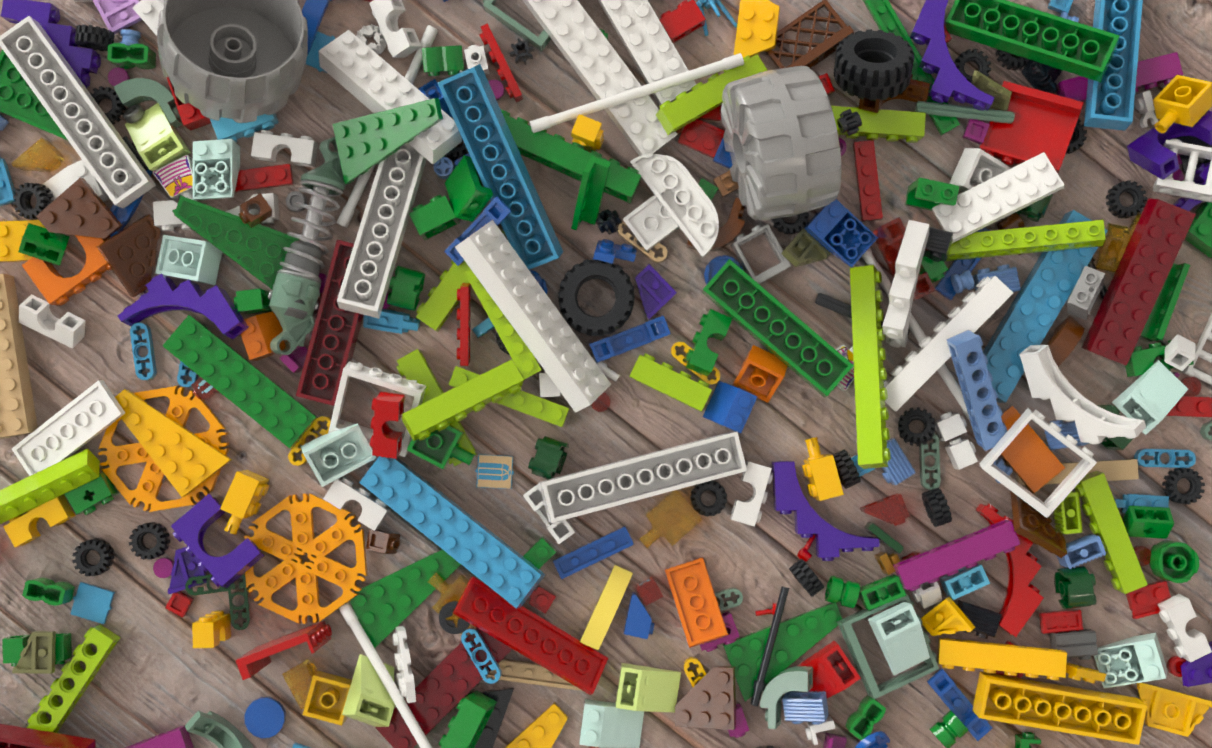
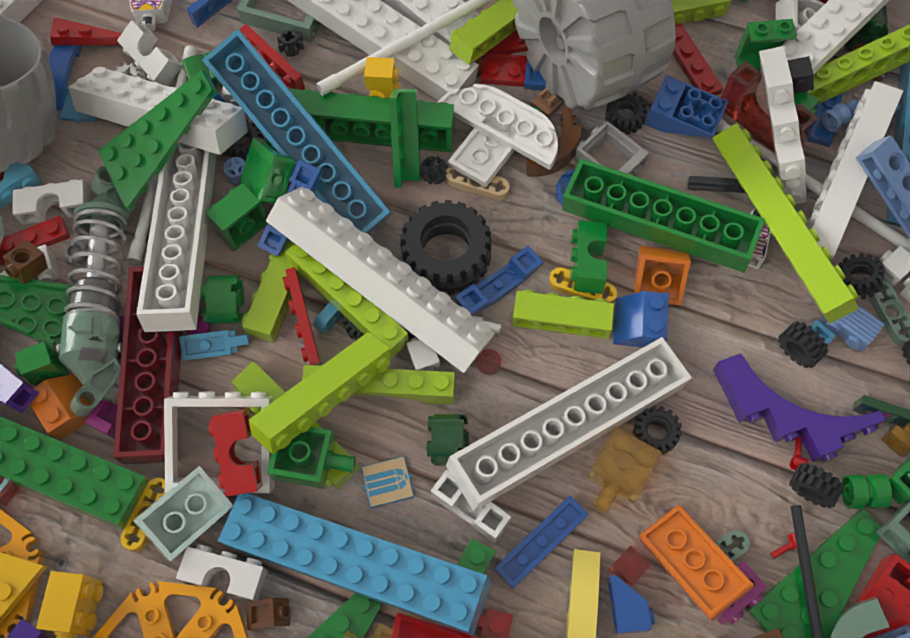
camera: 10 degrees left, 20 degrees down
(607, 251) = (461, 194): blue plate -> none
(653, 290) = (507, 225): dark purple wing -> none
(748, 511) = (706, 389): white arch -> none
(805, 250) = (656, 137): olive wing -> none
(821, 473) = (779, 356): yellow brick -> none
(889, 509) = (873, 378): clear red slope -> none

